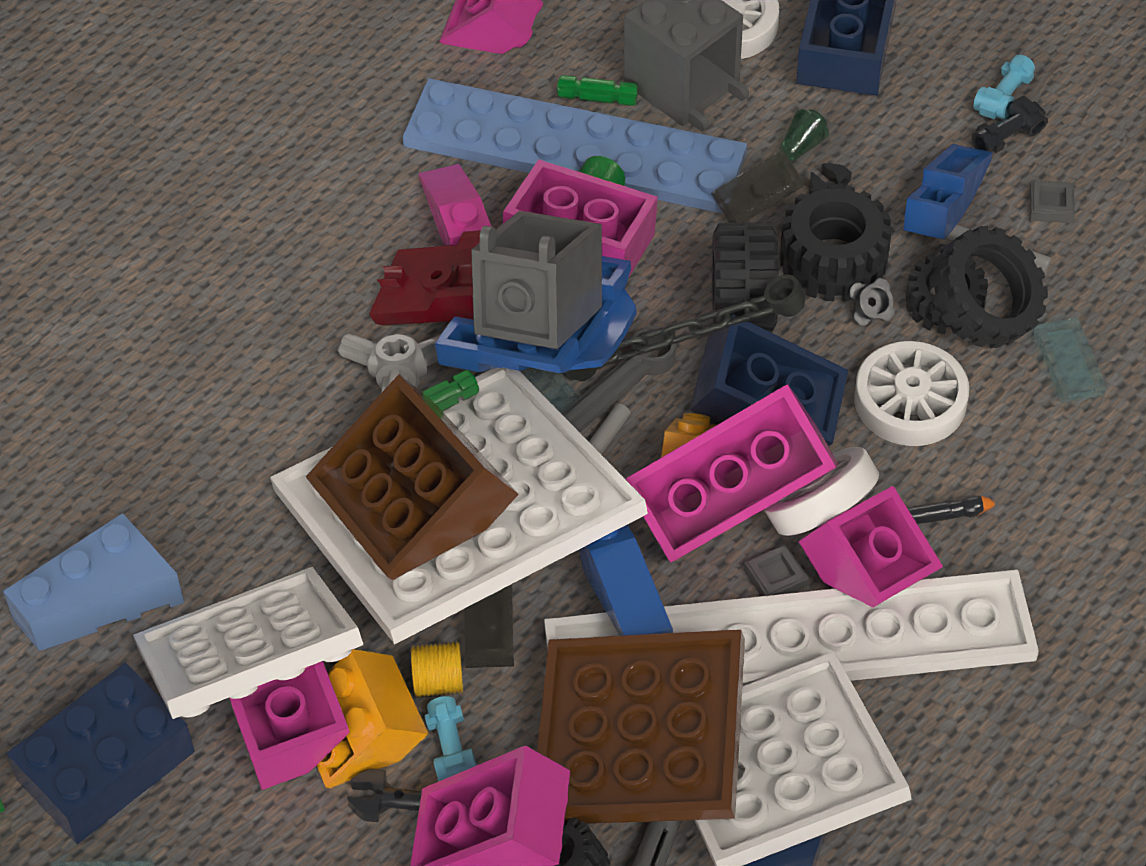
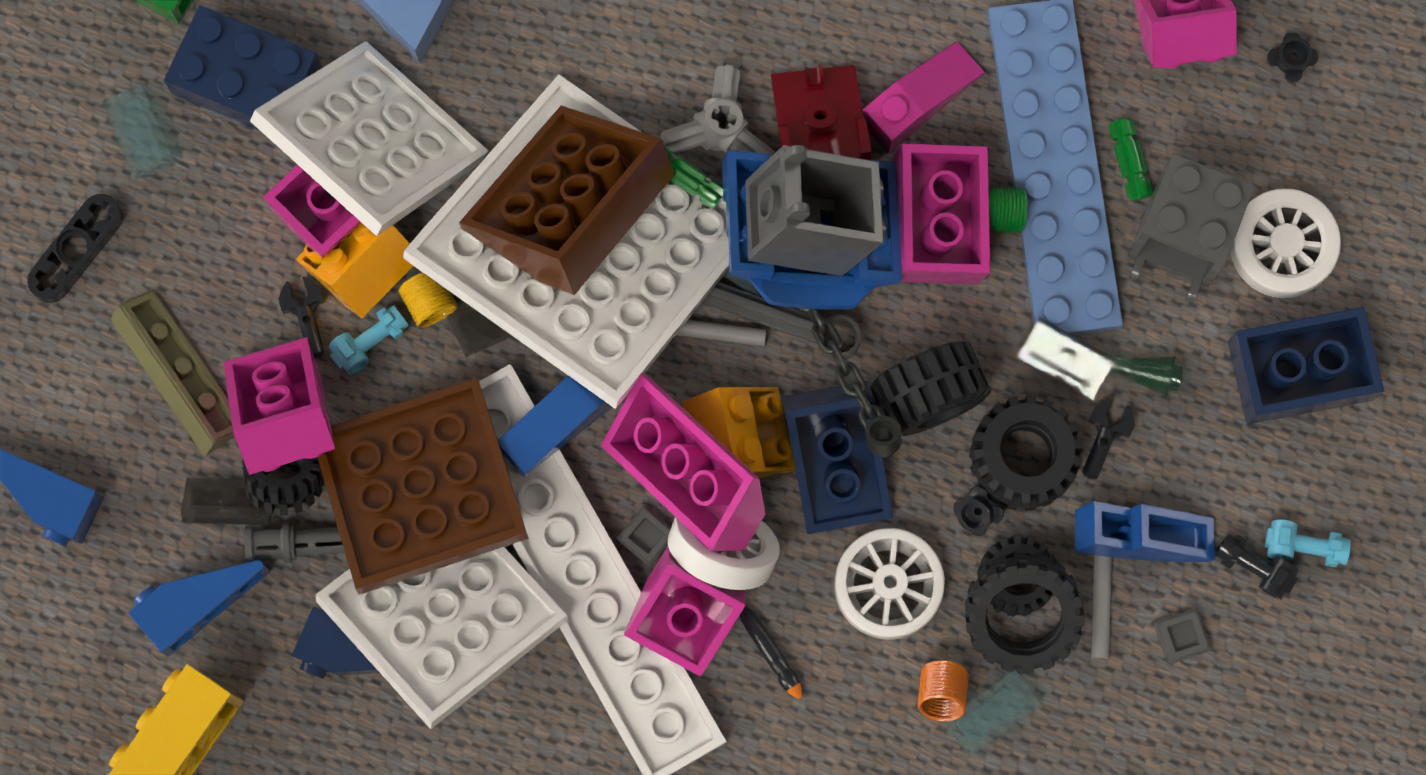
camera: 65 degrees right, 25 degrees up
(1036, 378) = (943, 690): none -> orange piece

